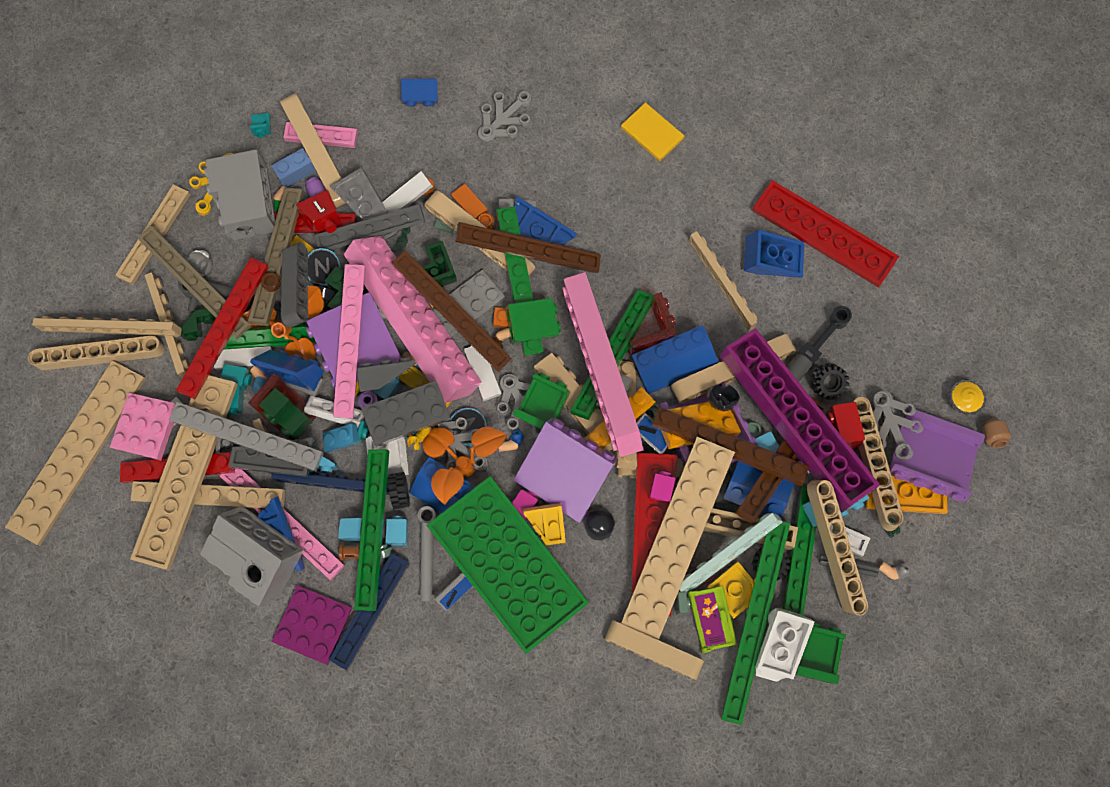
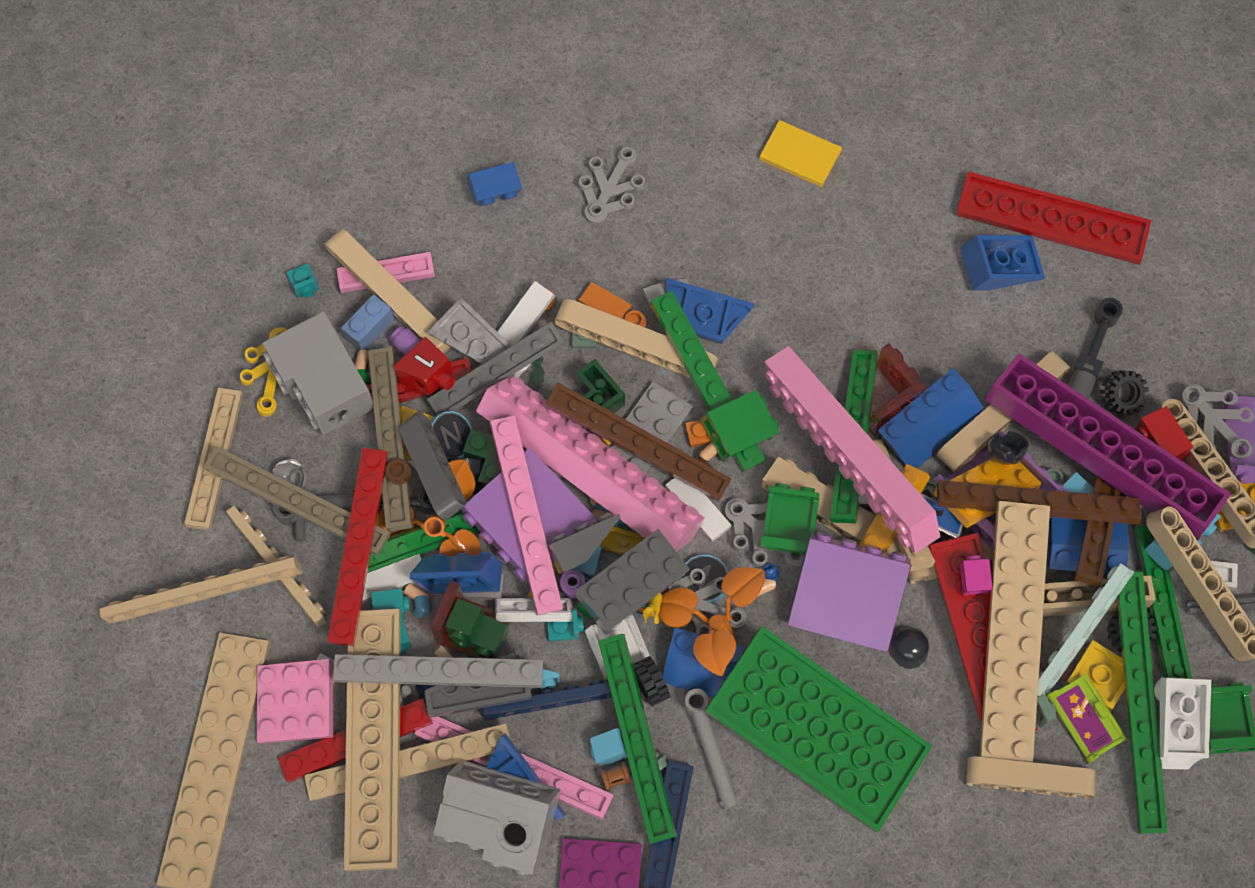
camera: 20 degrees left, 5 degrees down
(88, 352) = (184, 627): tan beam -> none
(193, 326) = (310, 559): dark green slope -> none
(340, 438) = (552, 639): dark azure plate -> none
(397, 531) = (665, 732): medium azure brick -> none
(453, 592) = (762, 784): slope -> none
(525, 500) = (812, 646): dark pink brick -> none
(527, 247) = (705, 336): reddish brown tile -> none
(547, 522) = (848, 663): yellow wing -> none
(720, 276) = (953, 310): tan plate -> none

